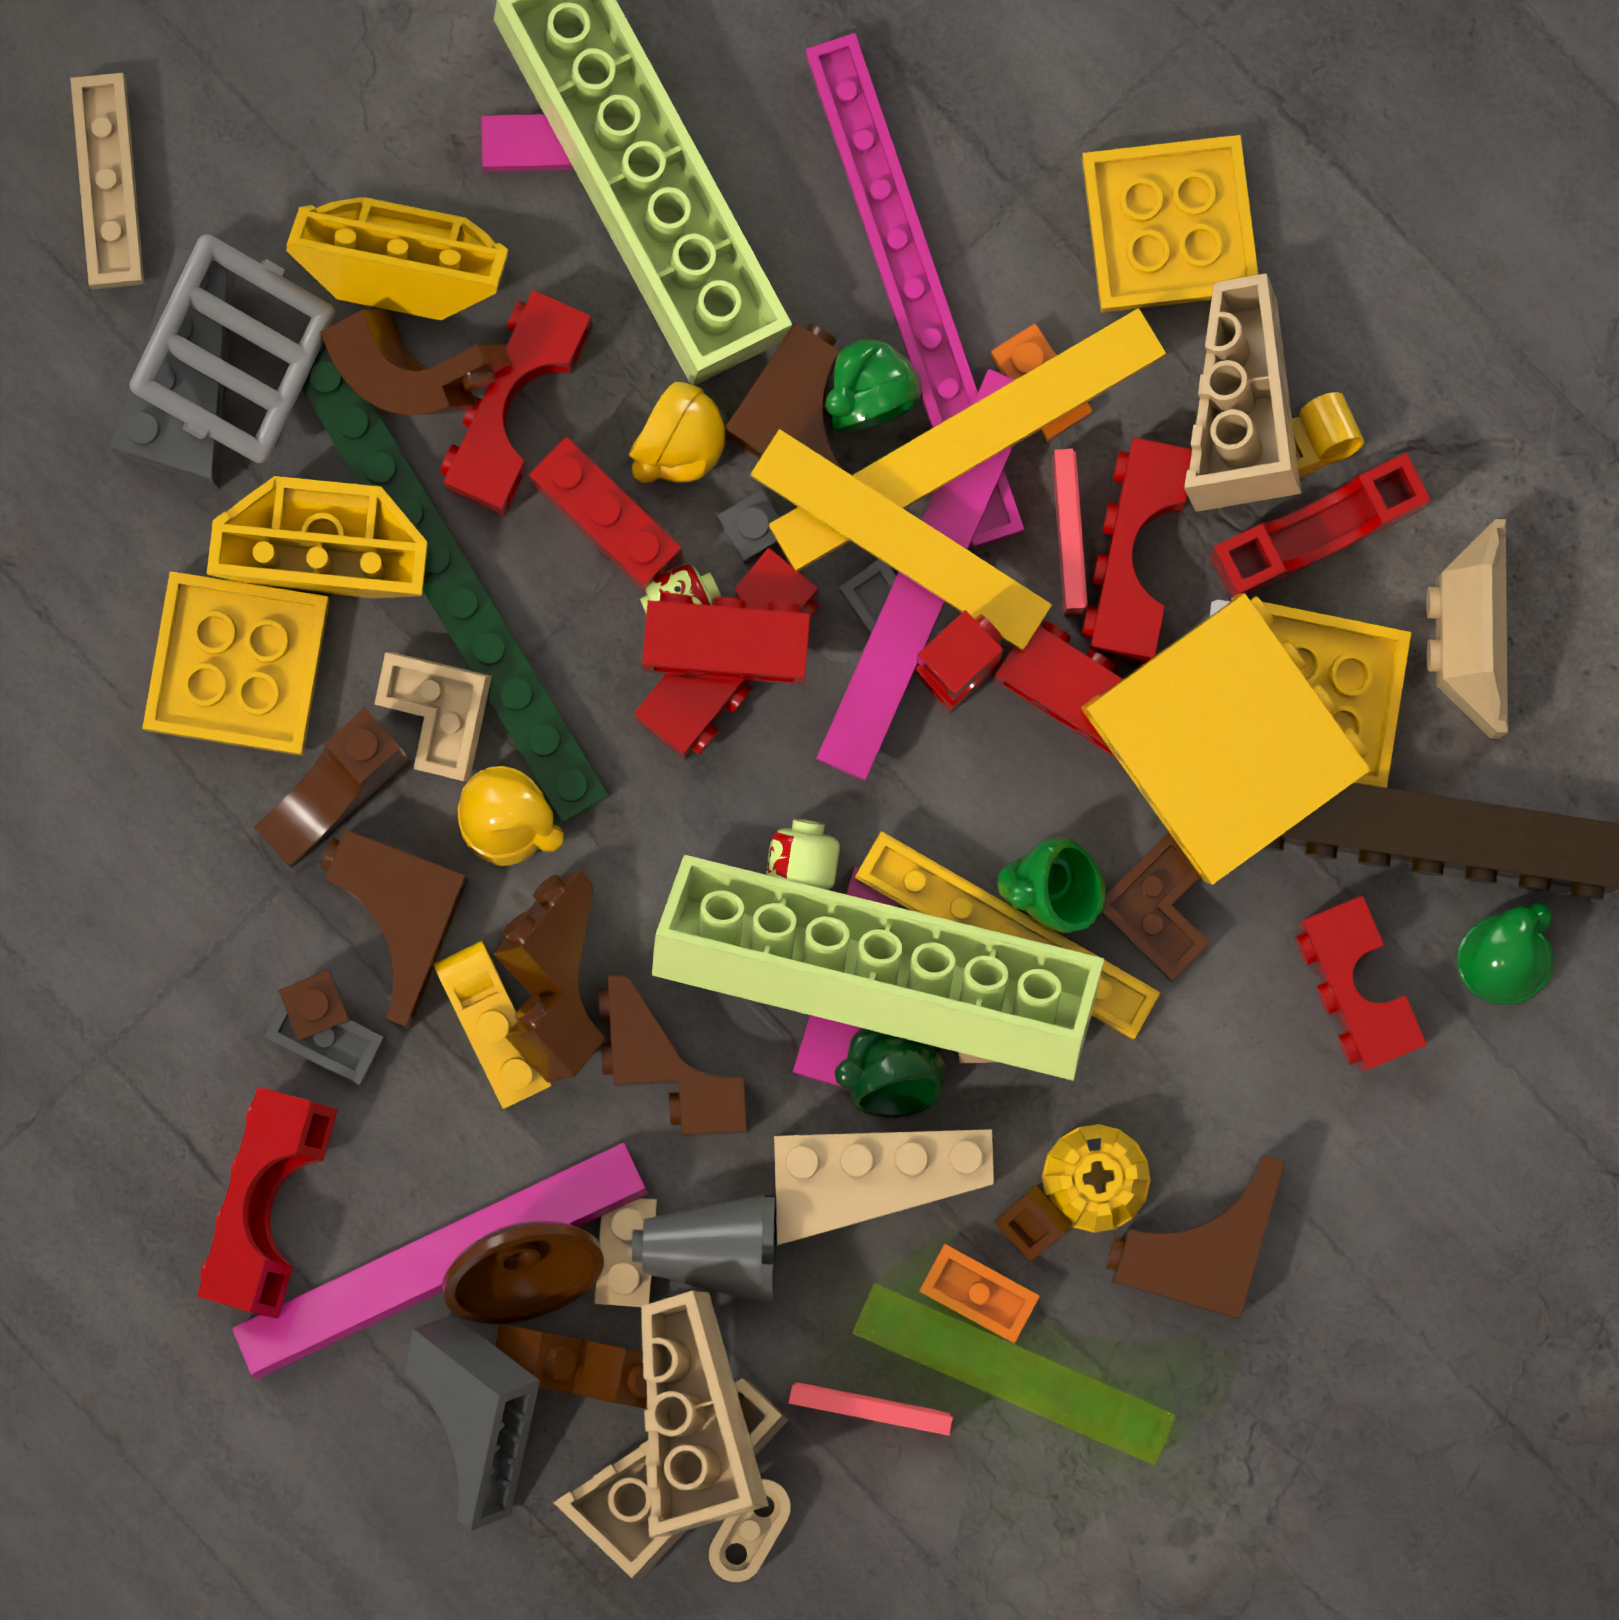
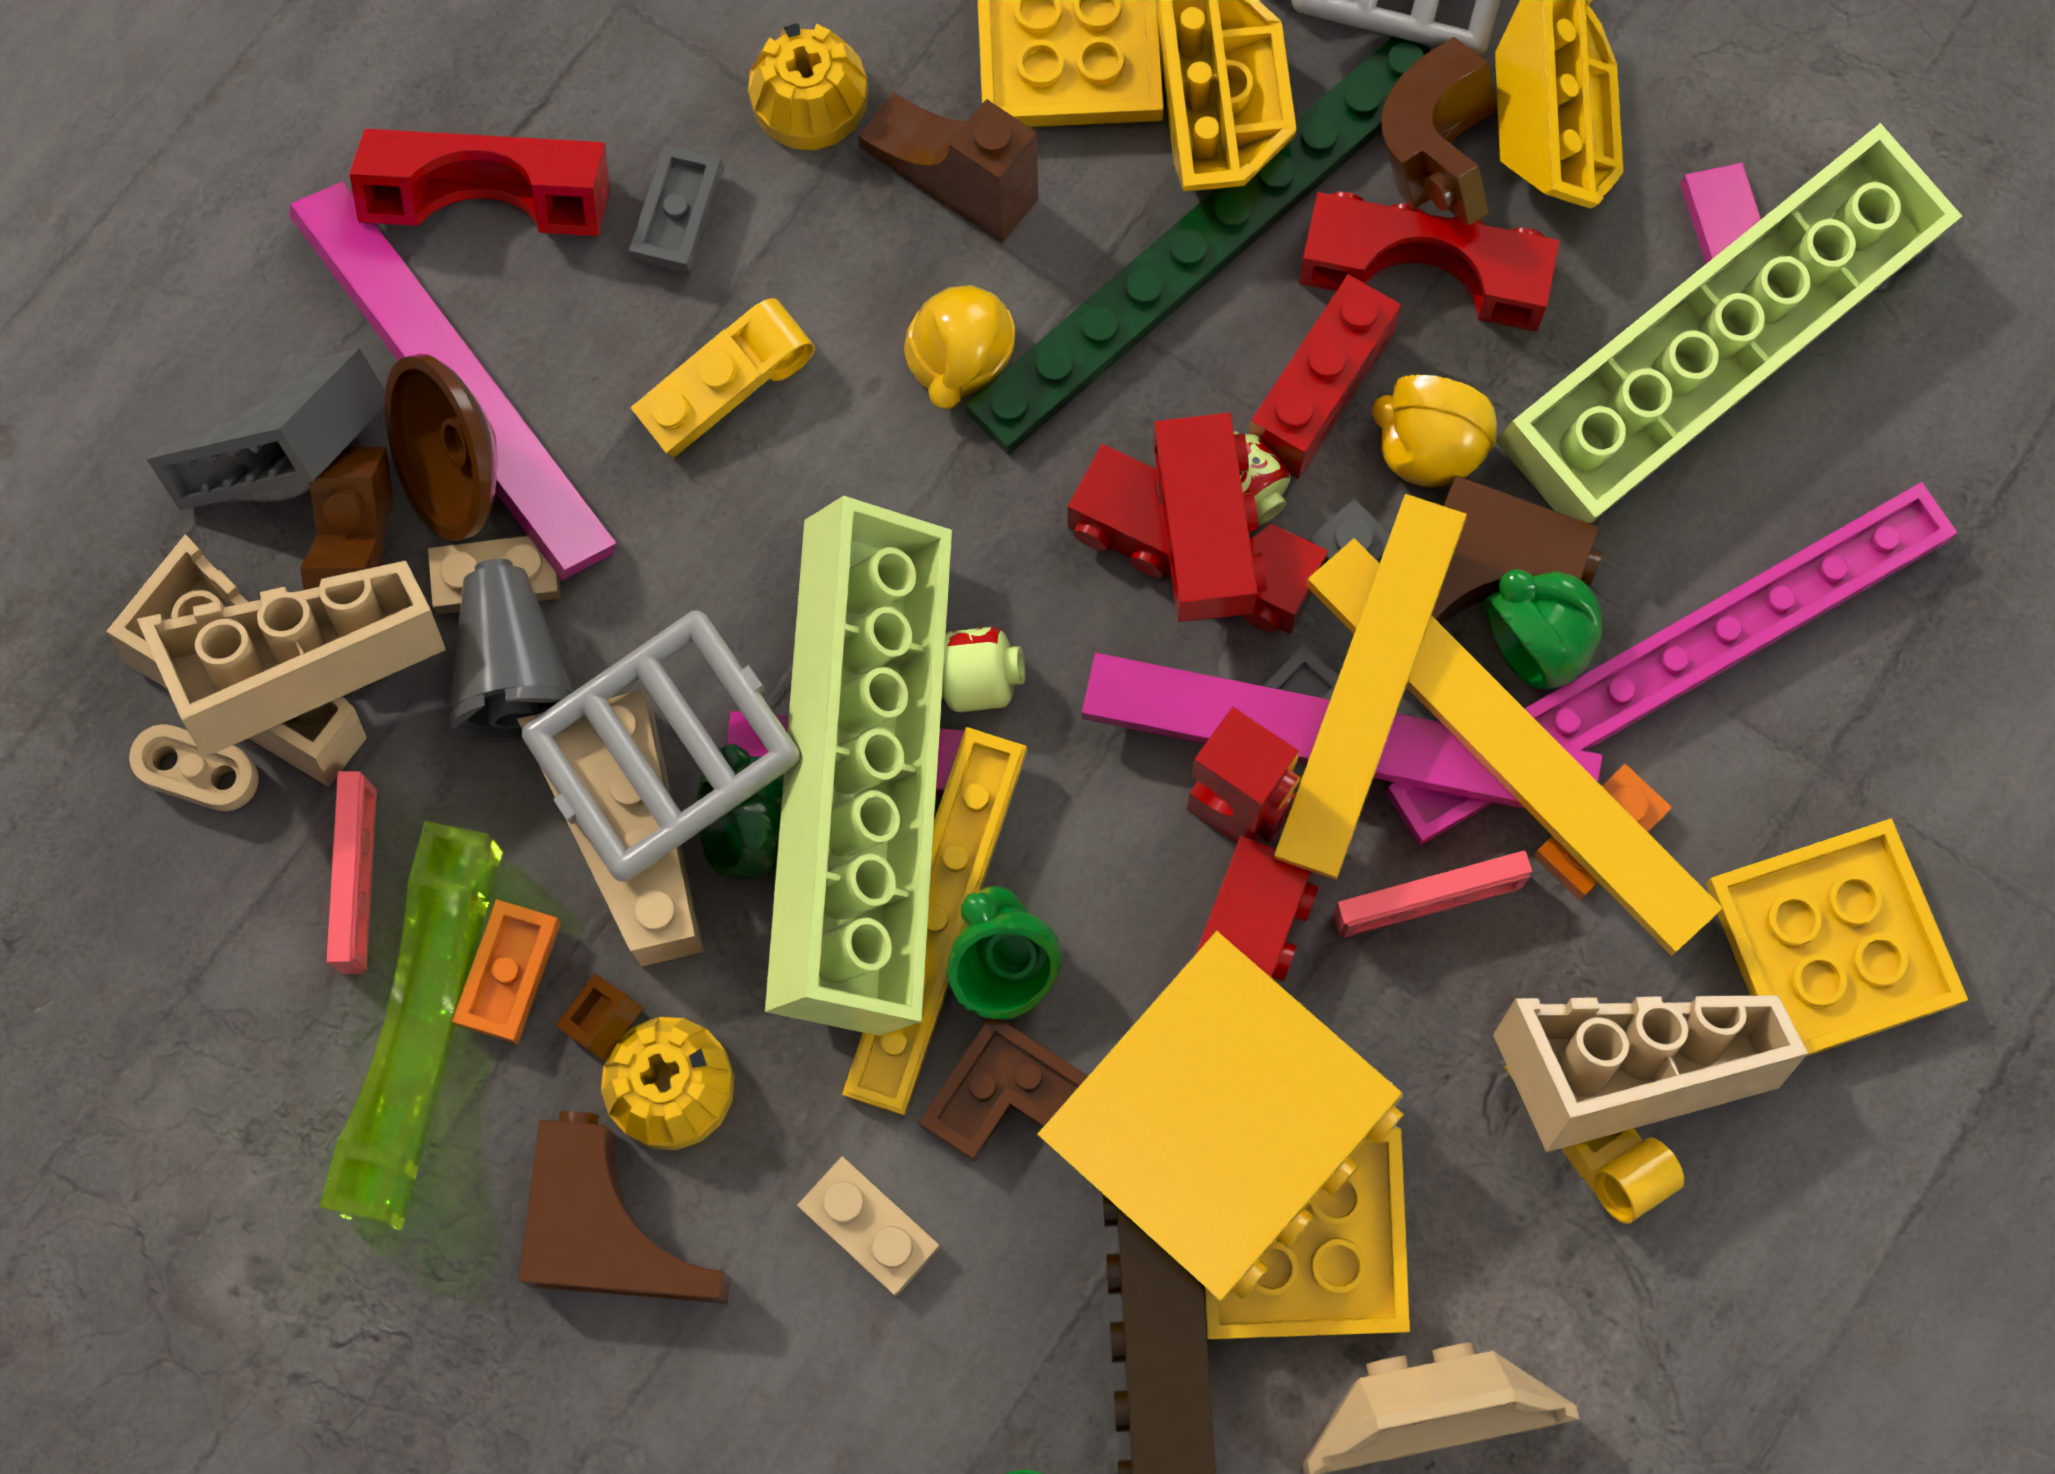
camera: 80 degrees right, 10 degrees down
(231, 902) = (808, 88): none -> yellow piece
(314, 1005) = (705, 183): reddish brown plate -> none
(410, 903) = (835, 264): reddish brown arch -> none
(451, 706) = (1072, 258): tan plate -> none
(545, 957) = (806, 406): reddish brown arch -> none
(645, 1056) = (721, 543): reddish brown arch -> none
(782, 1177) = (728, 787): none -> light grey bar
(1126, 616) = (1345, 977): red arch -> none
(1243, 1038) = (869, 1226): none -> tan plate
(1320, 529) = (1539, 1229): red arch -> none
(1371, 1030) = (905, 1380): red arch -> none

